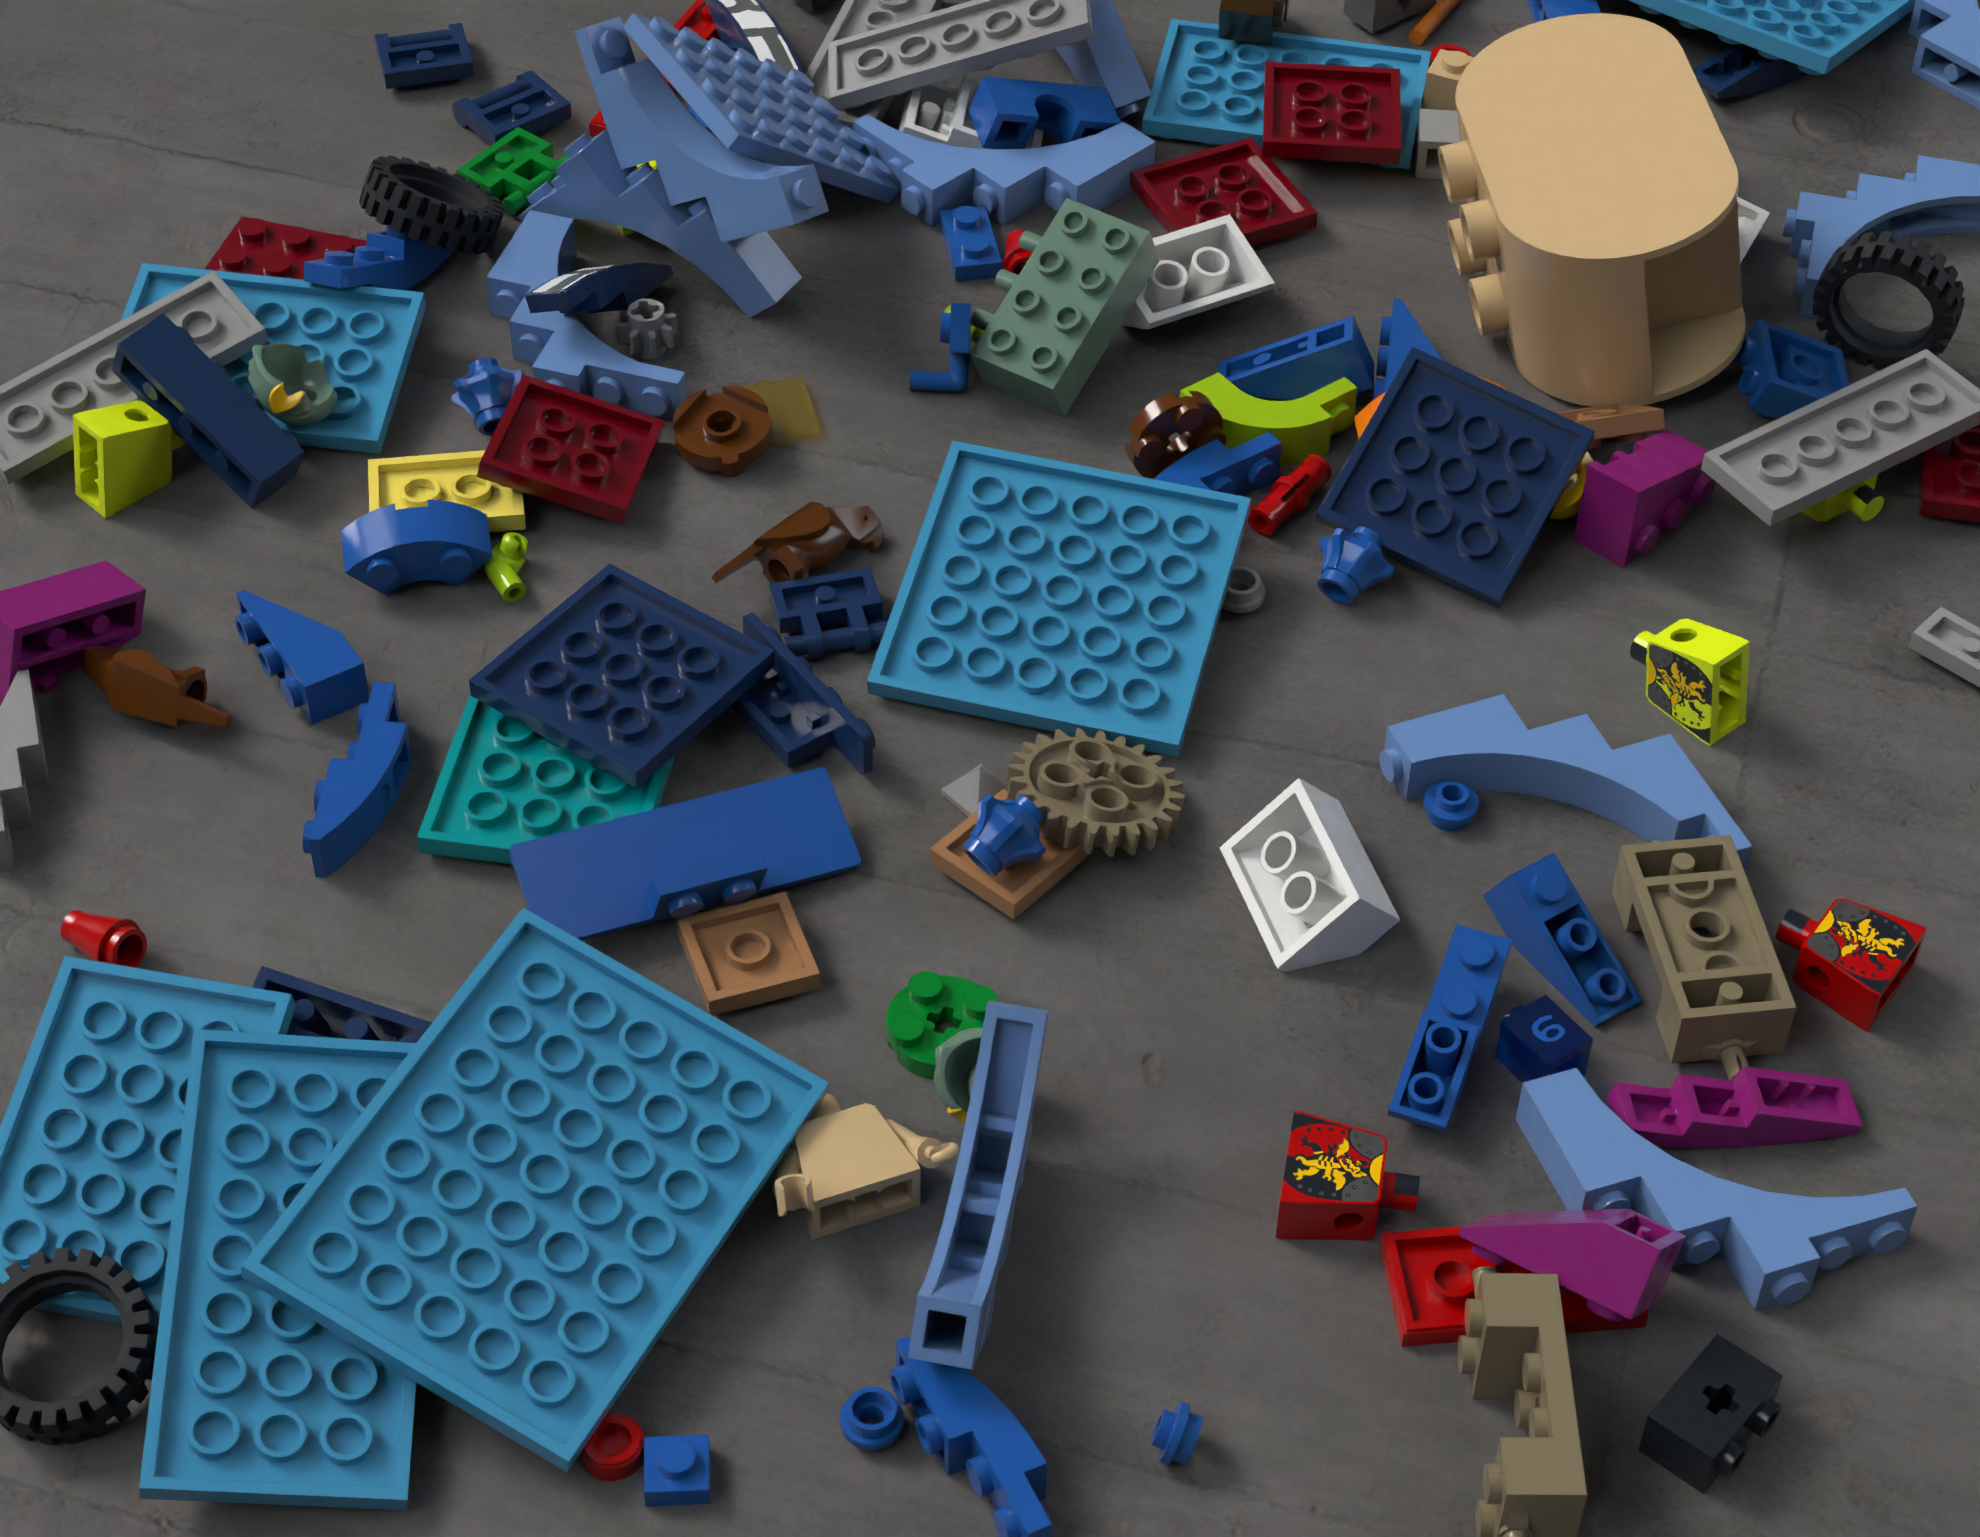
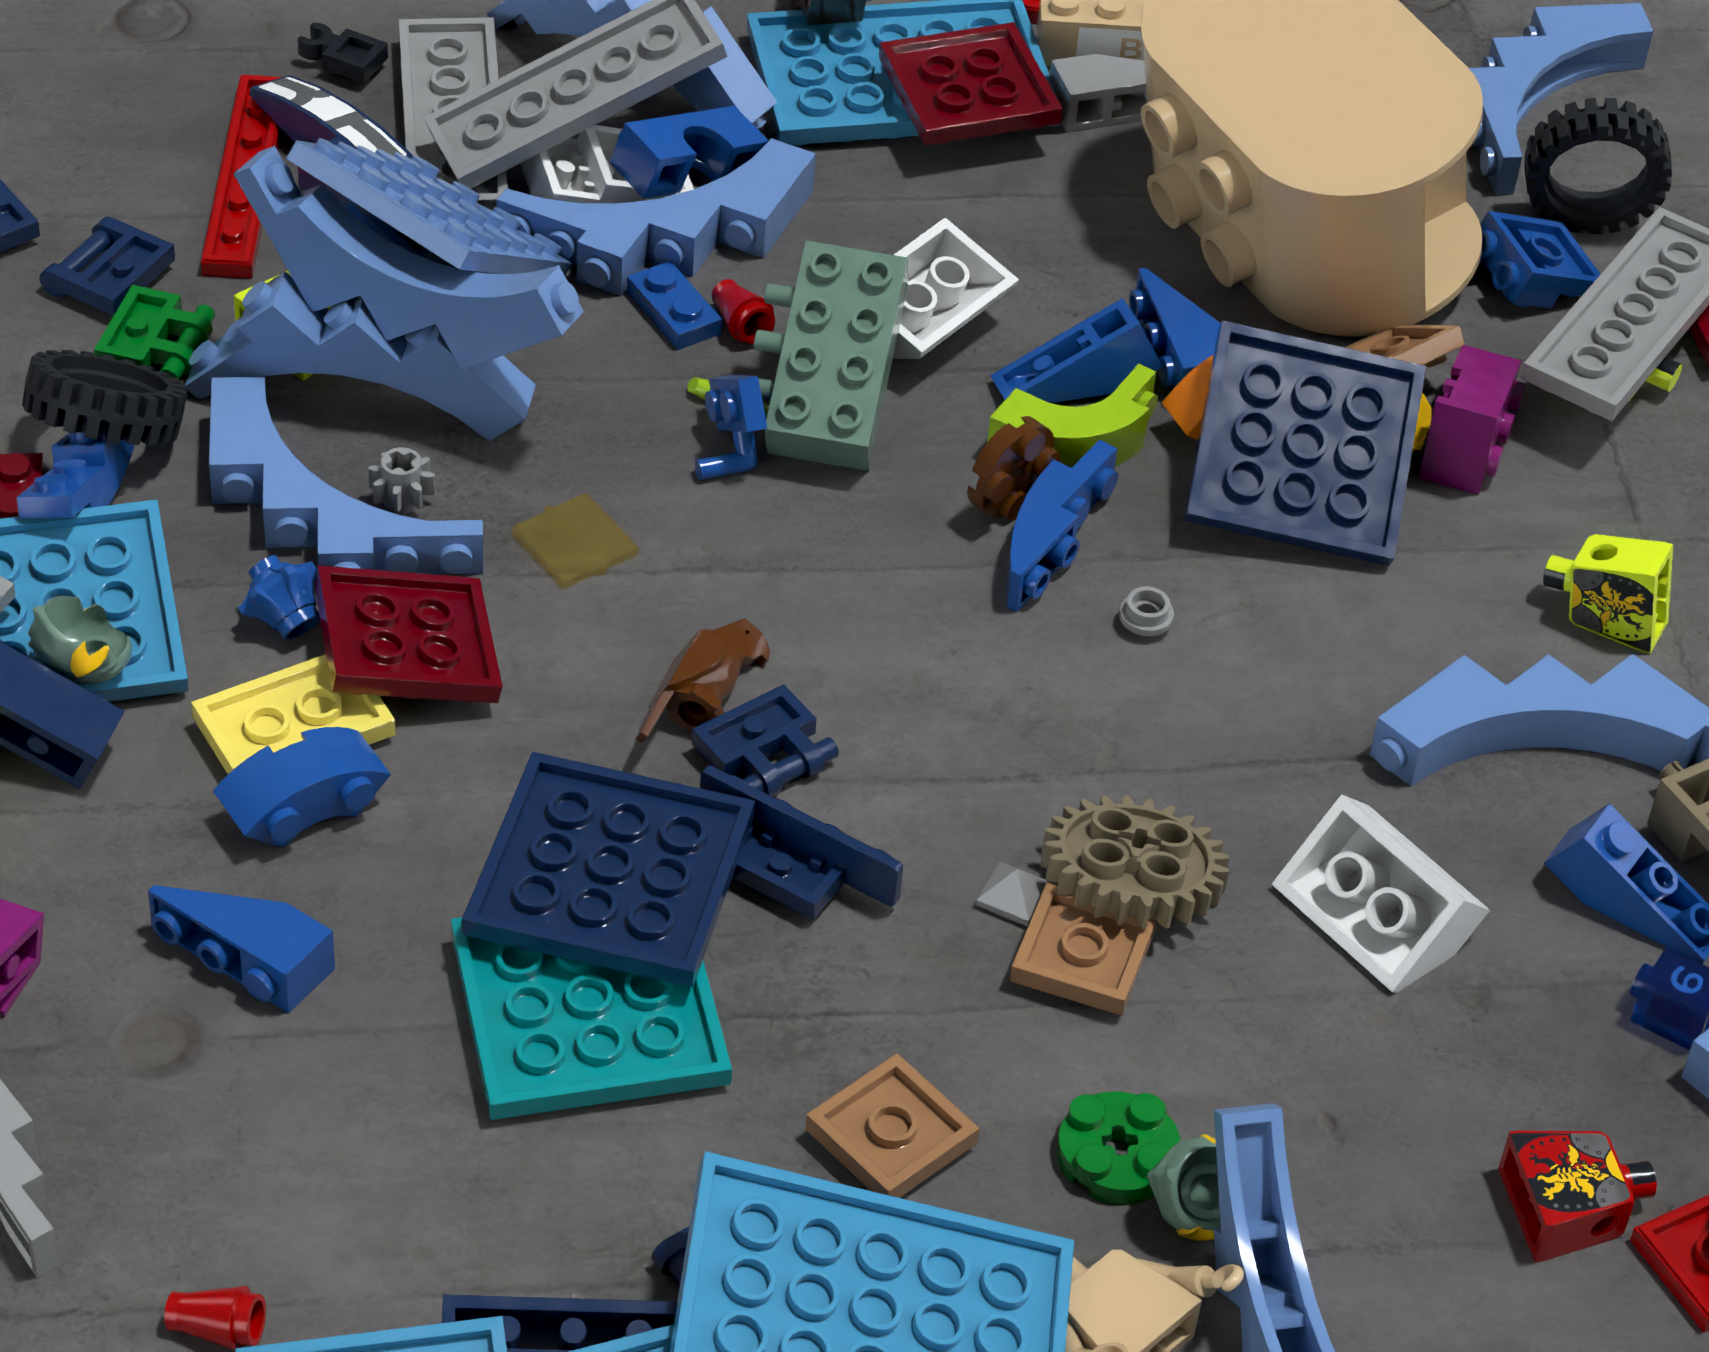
camera: 25 degrees left, 0 degrees up
(148, 689) = (102, 1023): reddish brown animal -> none
(362, 787) = (391, 1060): blue slope -> none
(505, 565) = (400, 786): lime arm -> none
(598, 288) = (341, 450): dark blue slope -> none
(687, 856) = (780, 1047): blue bracket -> none
(728, 450) = (549, 597): reddish brown plate -> none
(1005, 834) = (1092, 931): blue rock -> none
(1061, 597) = (994, 666): dark azure plate -> none
(1221, 183) = (899, 192): dark red plate -> none
(1307, 480) = (1140, 500): red pin -> none
(1352, 564) = (1244, 557): blue rock -> none
(1450, 805) = (1460, 780): blue plate -> none
(1451, 1029) = (1589, 1007): blue slope -> none

